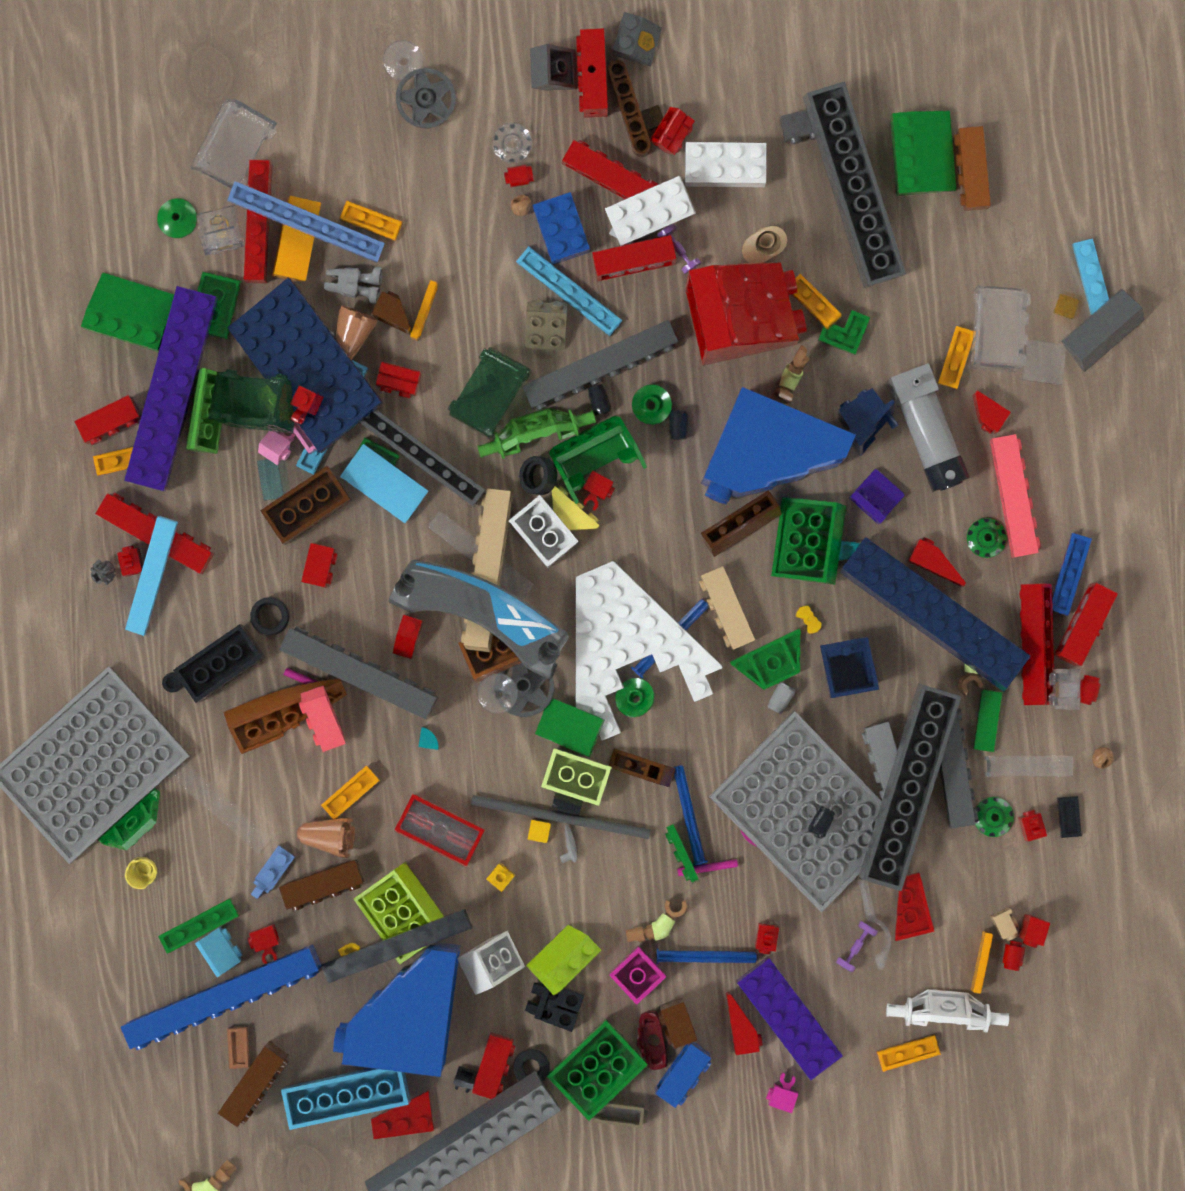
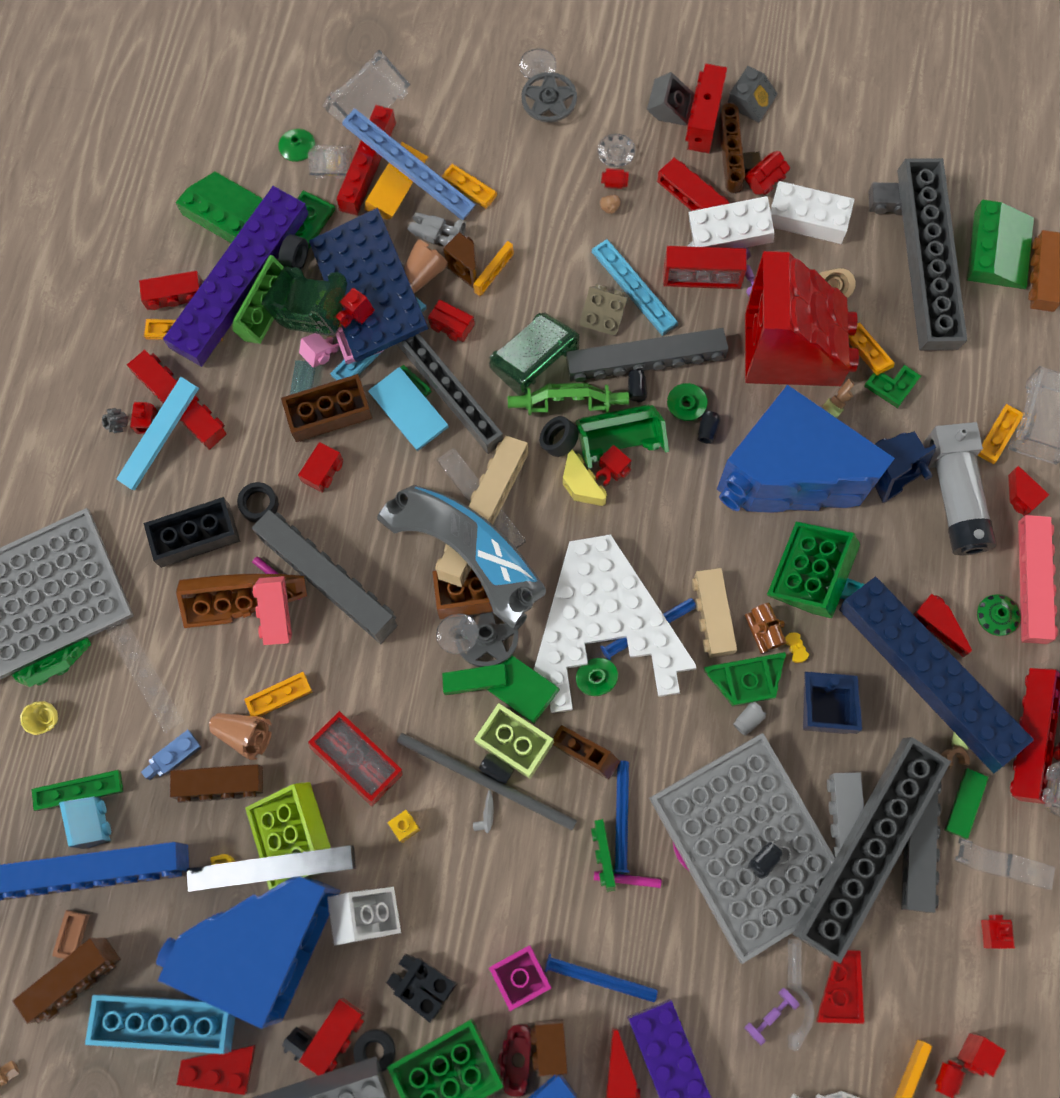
camera: 15 degrees right, 15 degrees down
(171, 683) = (141, 542): black tile -> none
(219, 351) = (293, 252): none -> black tyre
(264, 940) = (138, 824): red brick -> none
(407, 636) = (385, 555): red slope -> none
(428, 739) = (373, 664): teal tile -> none
(524, 729) = (474, 679): none -> green tile
(539, 831) = (459, 789): yellow tile -> none
(543, 531) = (549, 489): white slope -> none
(561, 228) = (642, 229): blue brick -> none
(563, 958) = (444, 935): lime slope -> none
(660, 928) = (558, 932): piece -> none
(741, 523) = (749, 532): reddish brown brick -> none
(766, 938) = (673, 977): red brick -> none
(777, 610) = (765, 628): none -> dark orange pin
(877, 496) = (892, 544): dark purple bracket -> none
(986, 809) = (944, 916): green dish -> none
(1005, 924) = (946, 1039): tan brick -> none
(1069, 817) = (1039, 935): black tile -> none

